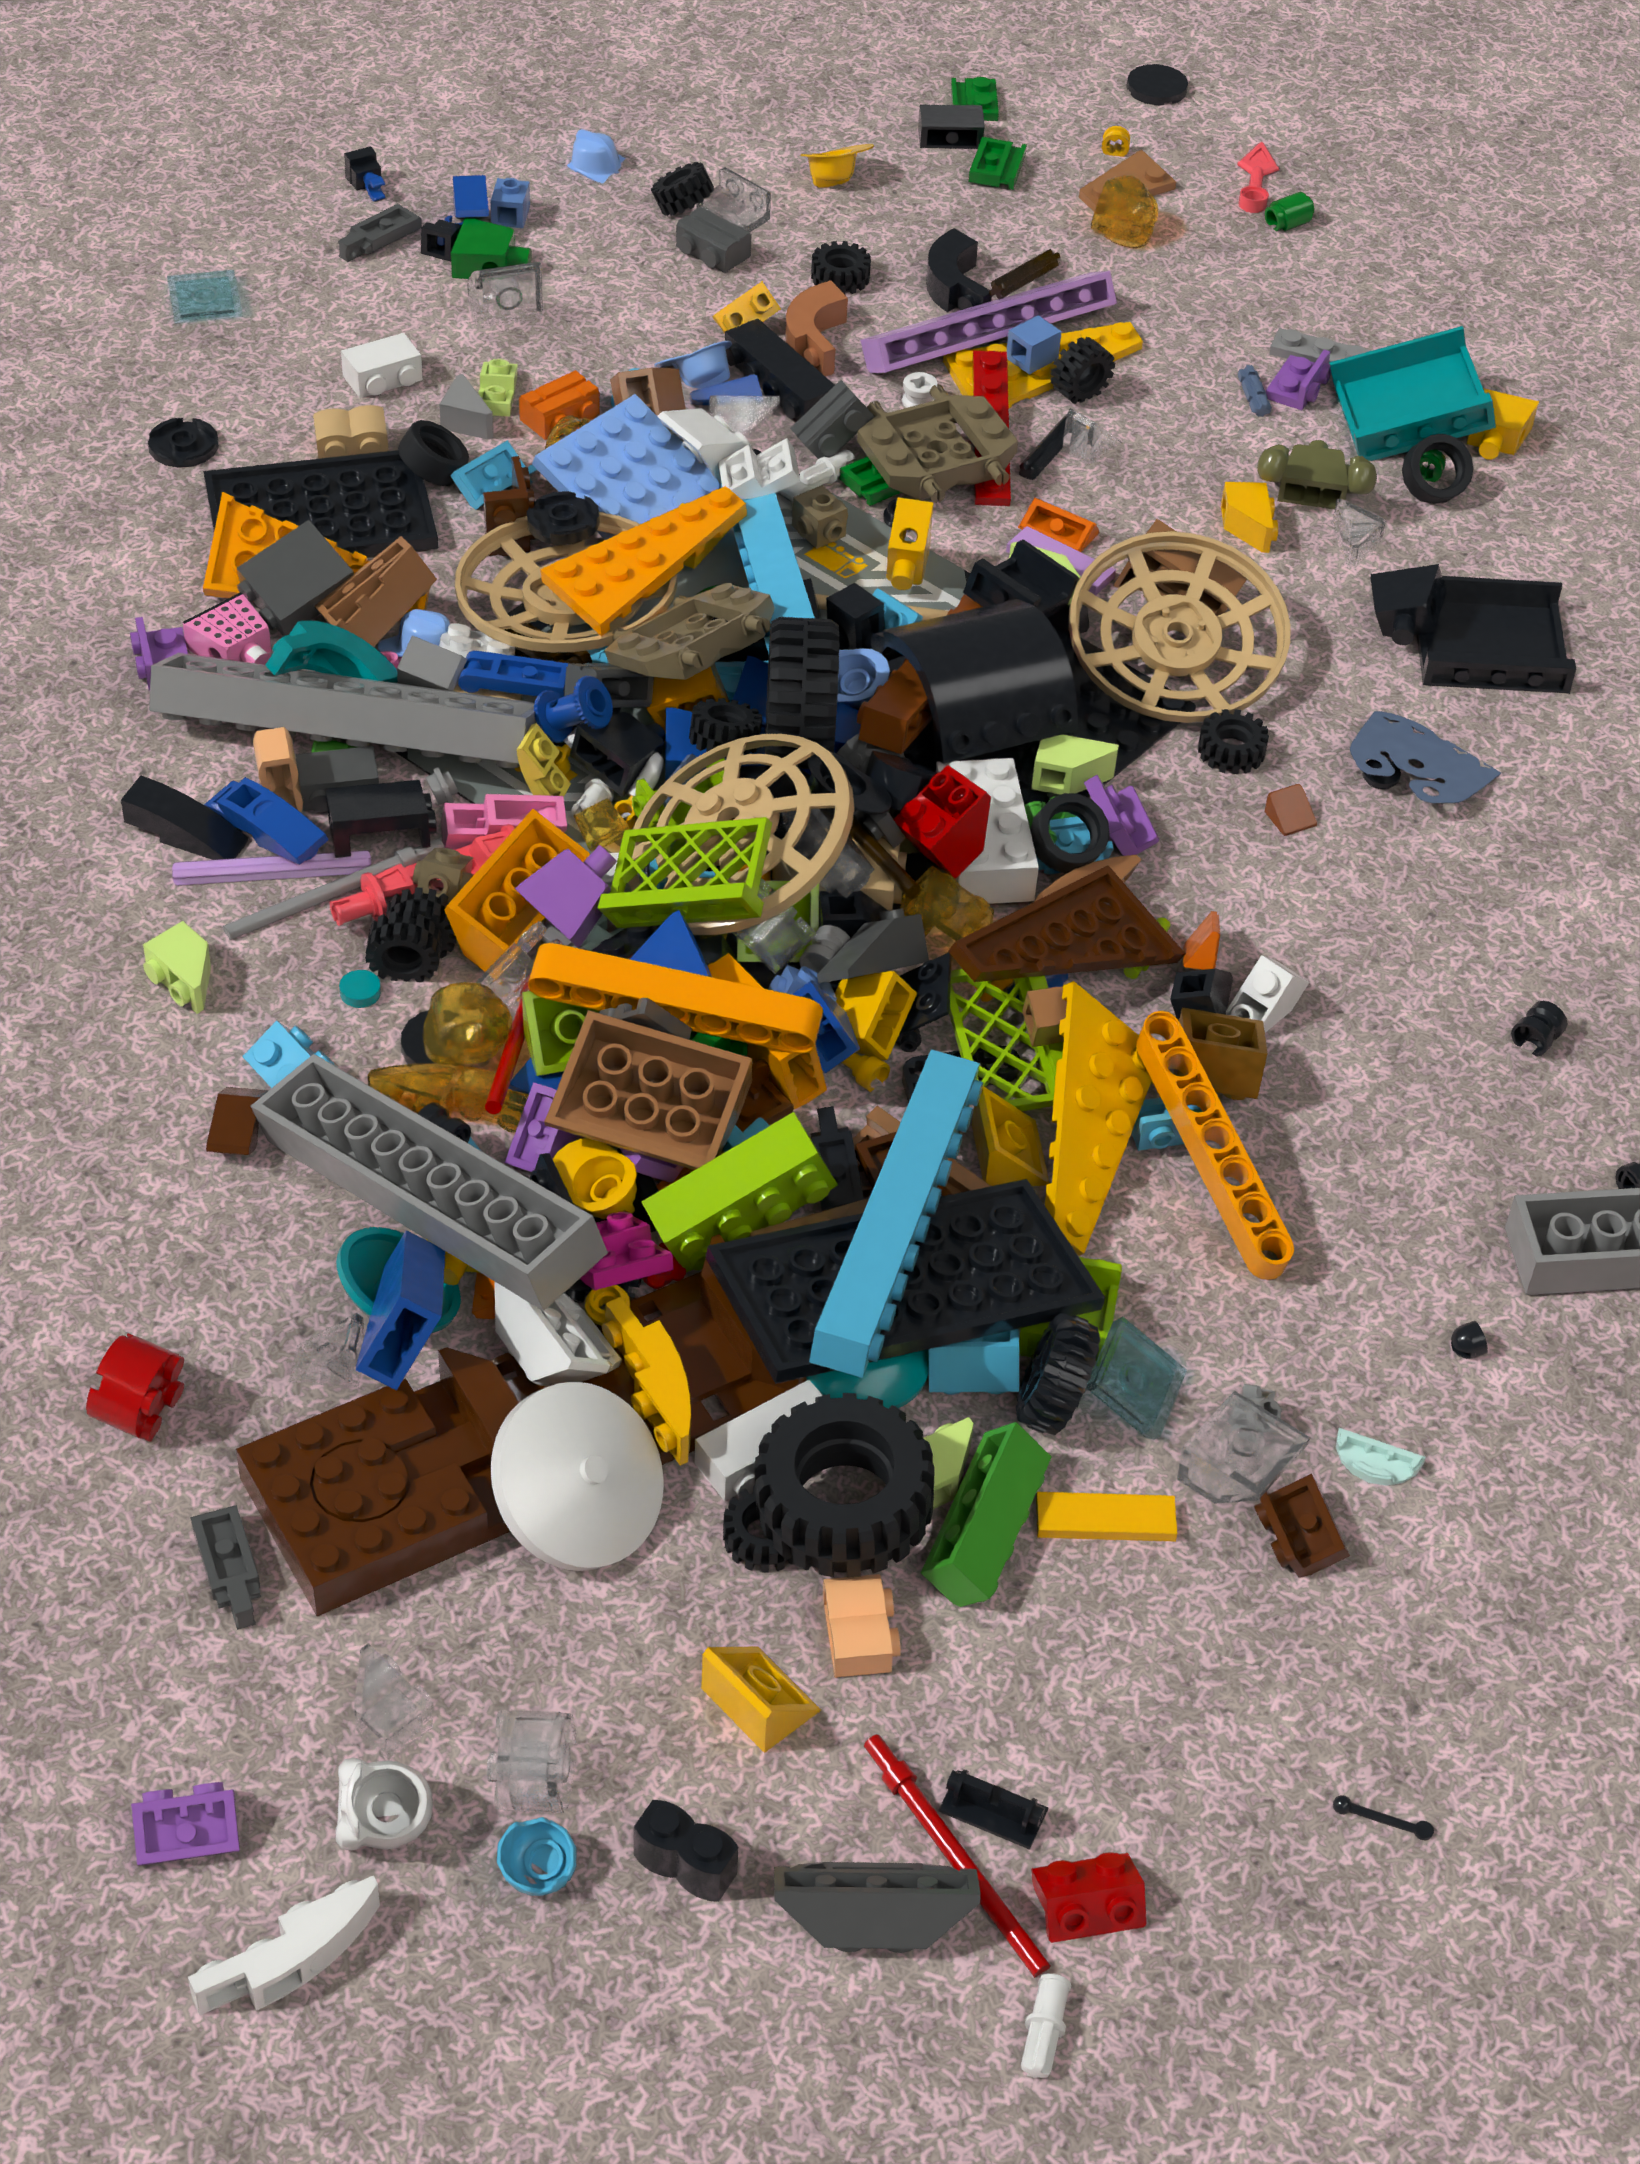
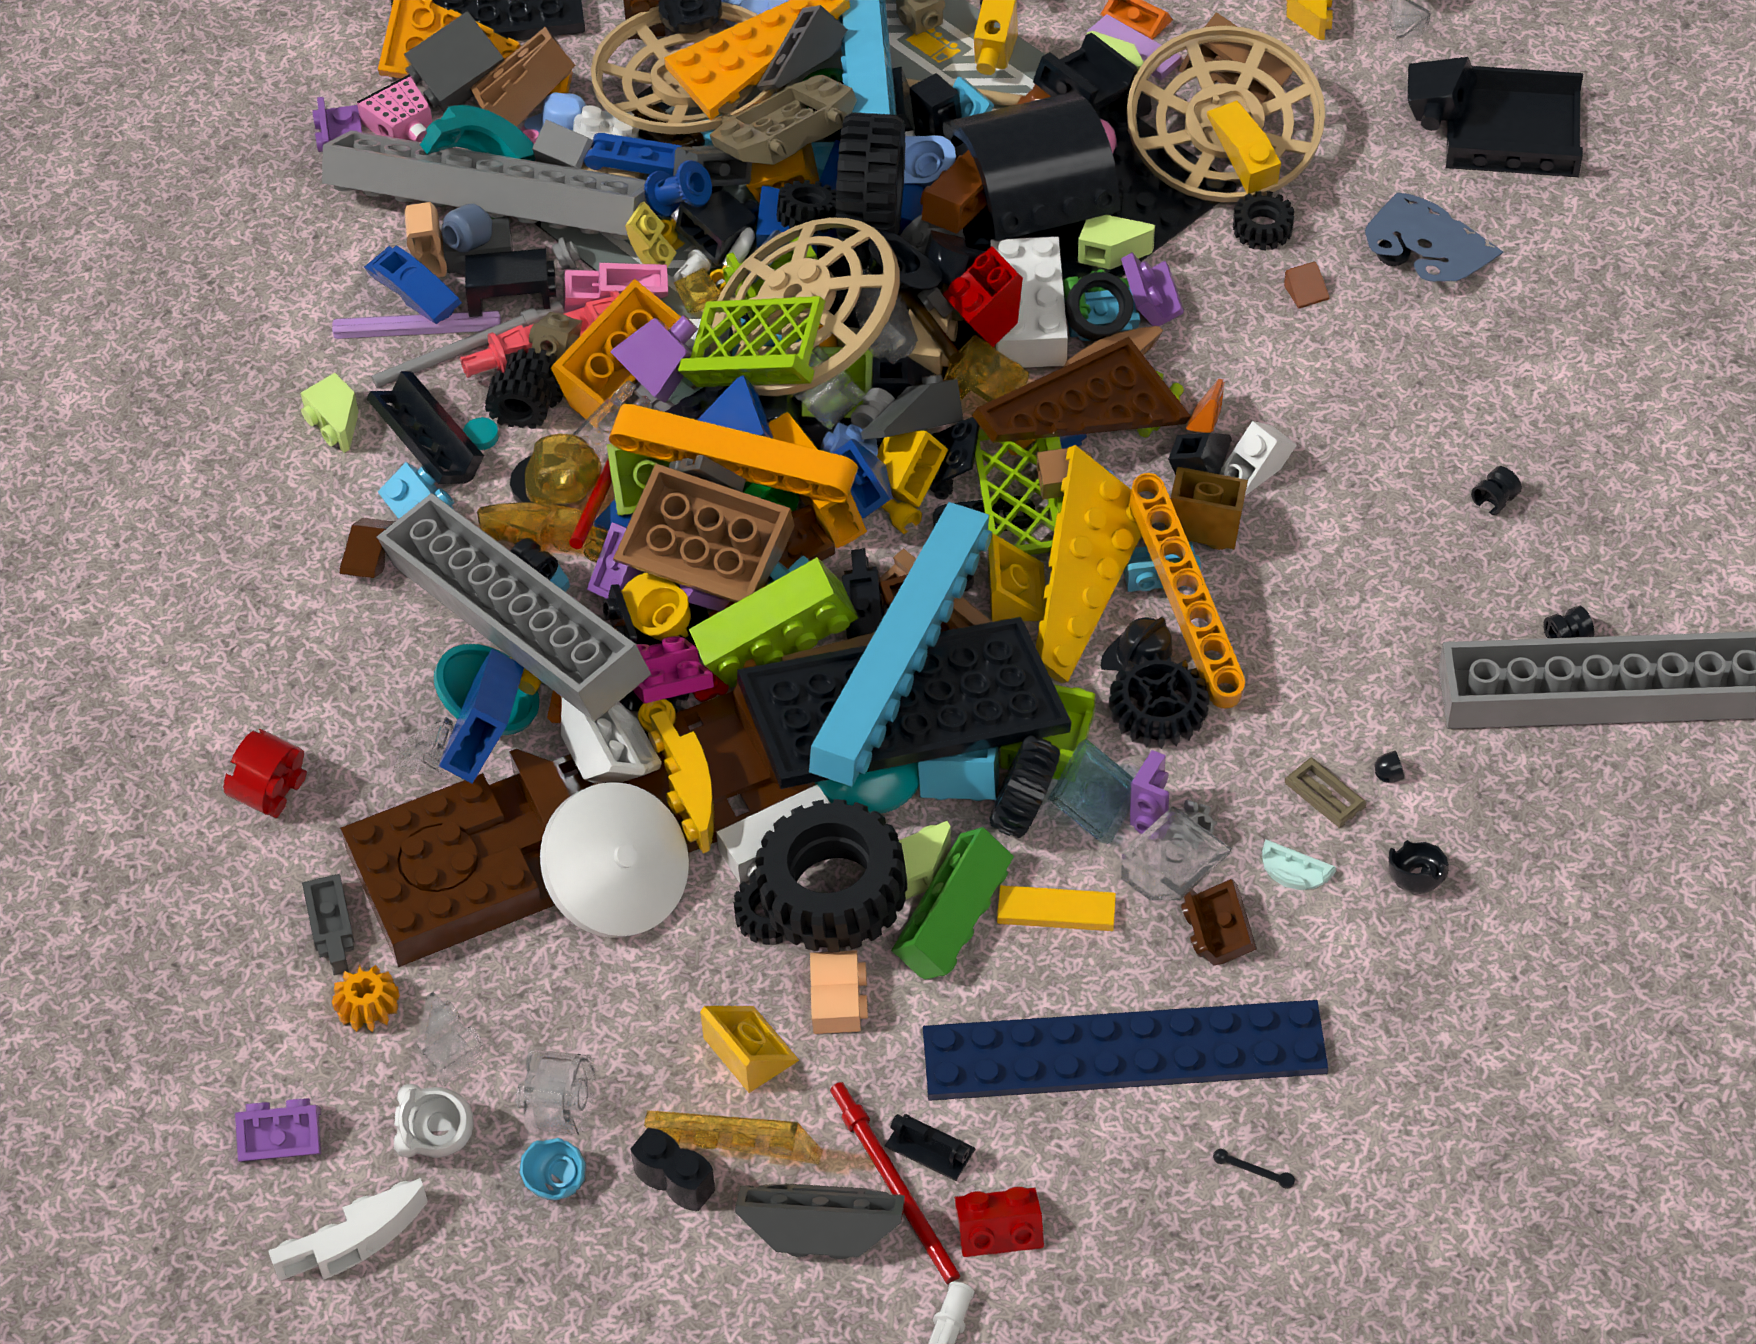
camera: 10 degrees right, 5 degrees up
(181, 820) = (342, 282): black slope -> none
(281, 1655) = (365, 998): none -> light orange gear
(298, 985) = (430, 428): none -> black fence
(327, 756) = (467, 228): none -> sand blue head
(706, 551) = (808, 43): none -> dark grey slope
(774, 1804) = (746, 1135): none -> clear yellow wing
(1162, 1213) = (1141, 637): none -> black piece
(1194, 1271) = (1163, 711): none -> black gear
(1204, 1381) = (1148, 795): none -> medium lavender bracket
(1207, 1682) = (1124, 1050): none -> dark blue plate
(1209, 660) = (1246, 146): none -> yellow slope
(1394, 1376) = (1316, 801): none -> dark tan tile
(1535, 1446) = (1418, 855): none -> black hair

